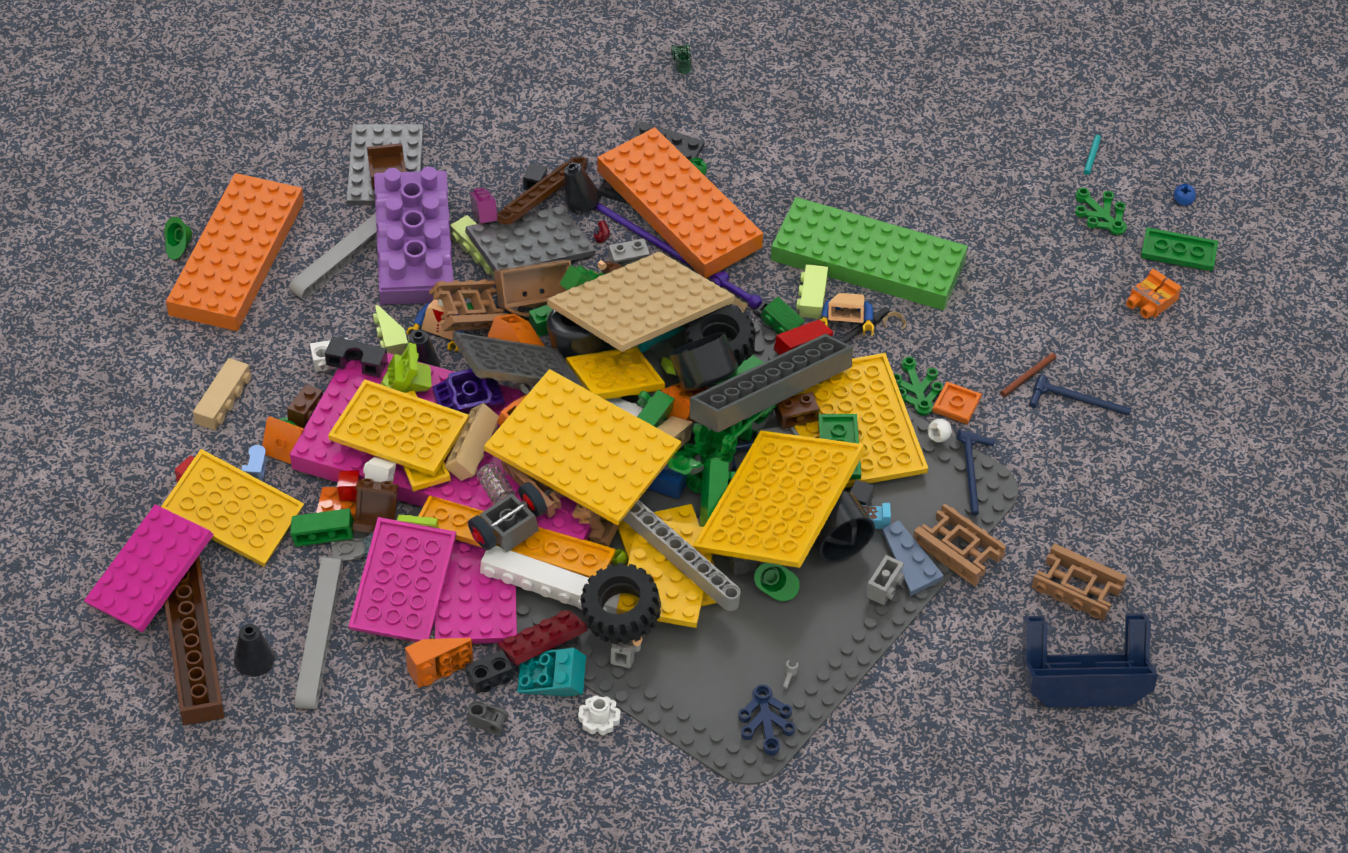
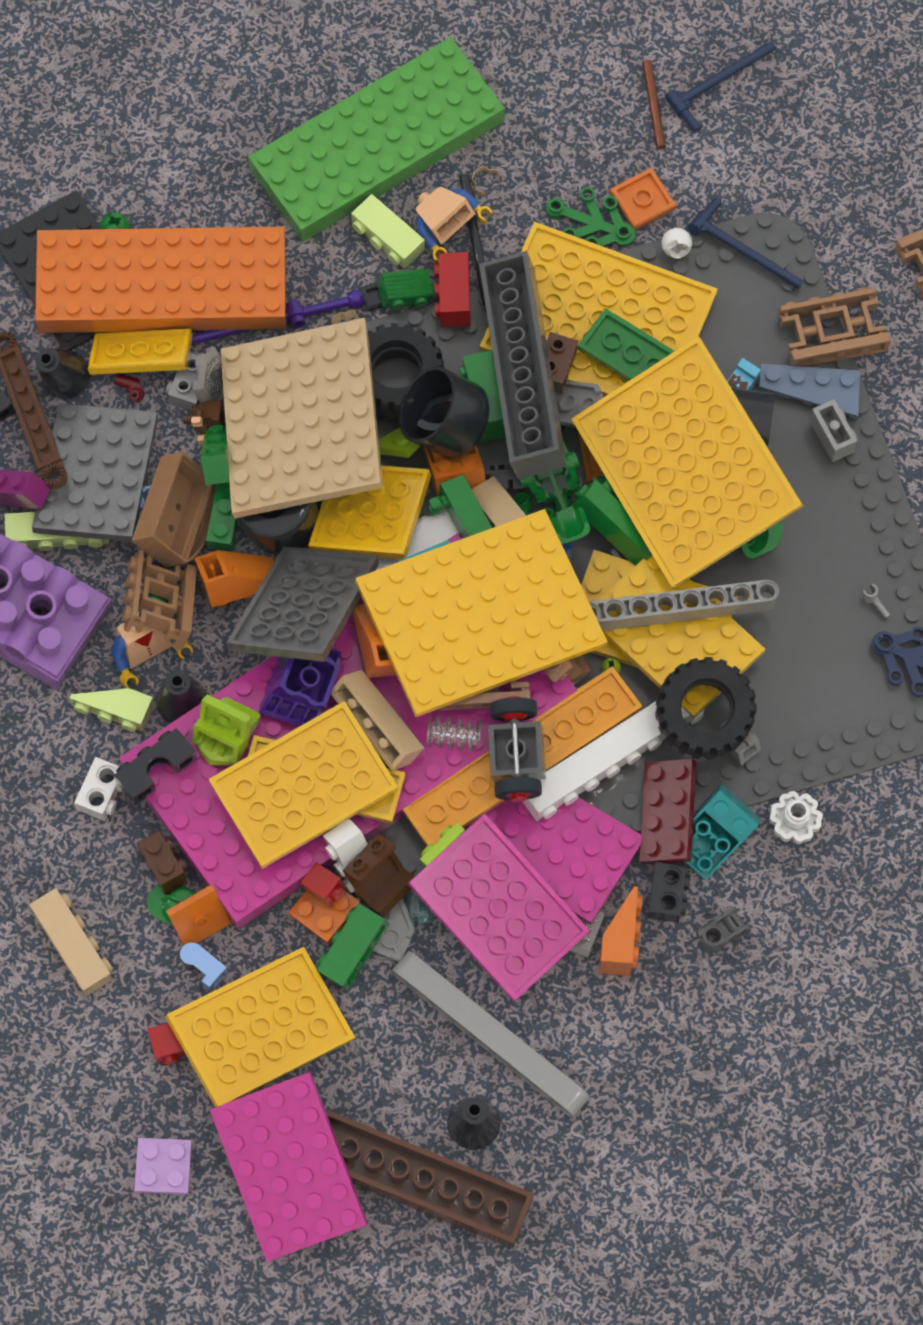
camera: 55 degrees left, 20 degrees up
(111, 517) = (163, 1166): none -> lavender plate
(625, 219) = (140, 351): none -> yellow tile
(634, 248) = (209, 373): none -> light grey tile

